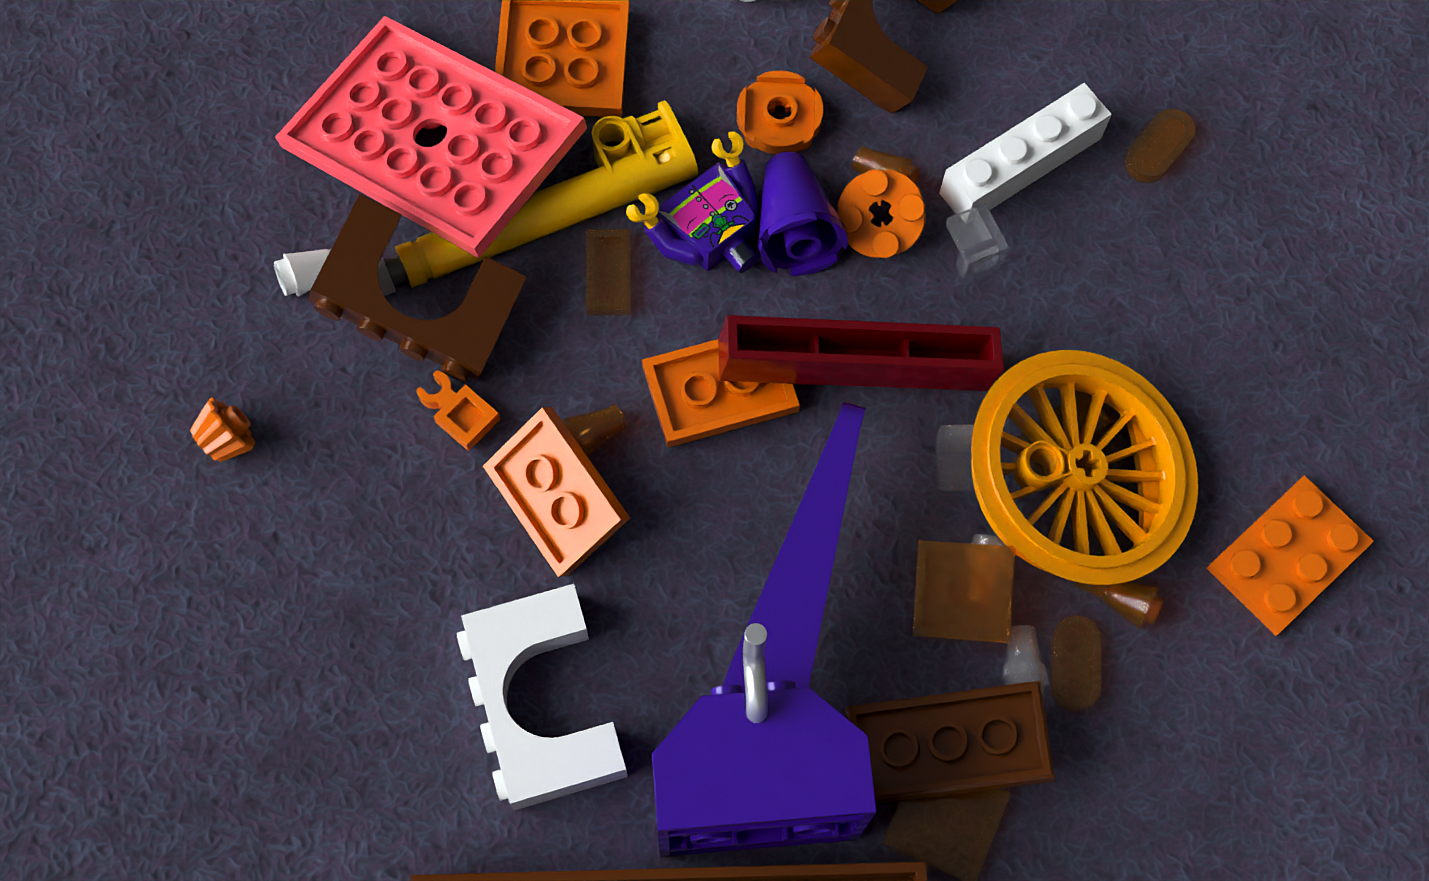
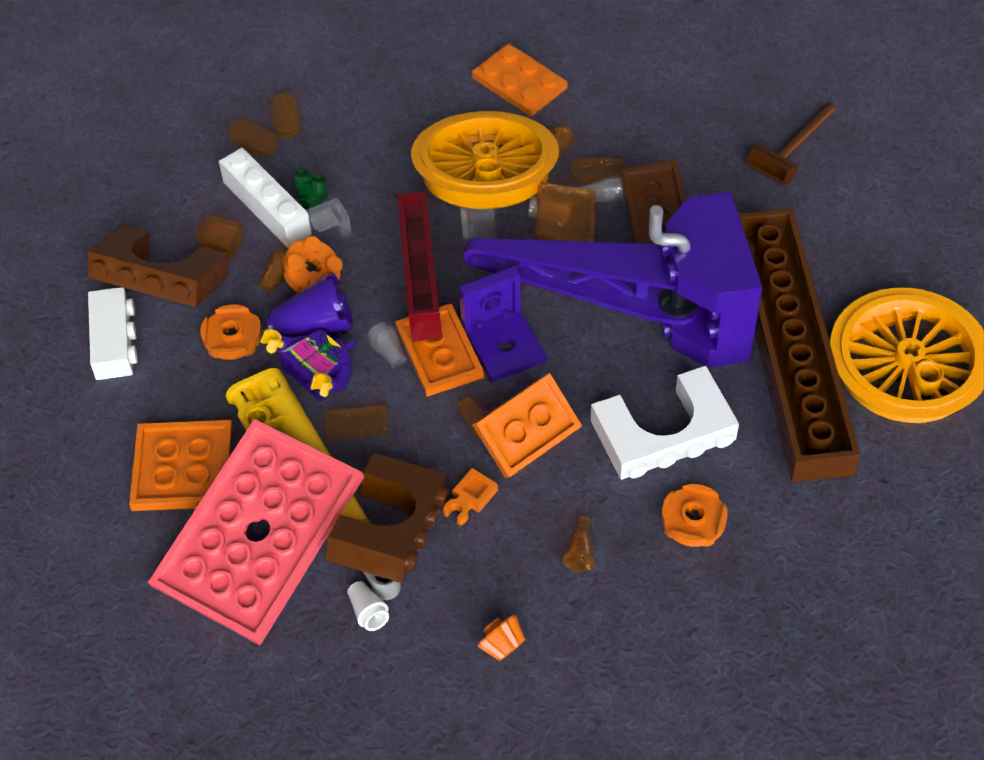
camera: 90 degrees left, 15 degrees down
(346, 550) = (579, 554): none -> clear orange cone
(367, 695) = (694, 532): none -> orange plate
(740, 303) = (386, 343): none -> clear cone
(757, 459) = (499, 322): none -> dark purple bracket
(951, 95) = (221, 234): none -> clear orange brick
(1027, 216) = (310, 187): none -> dark green plate
(1206, 191) = (285, 116): none -> clear orange tile

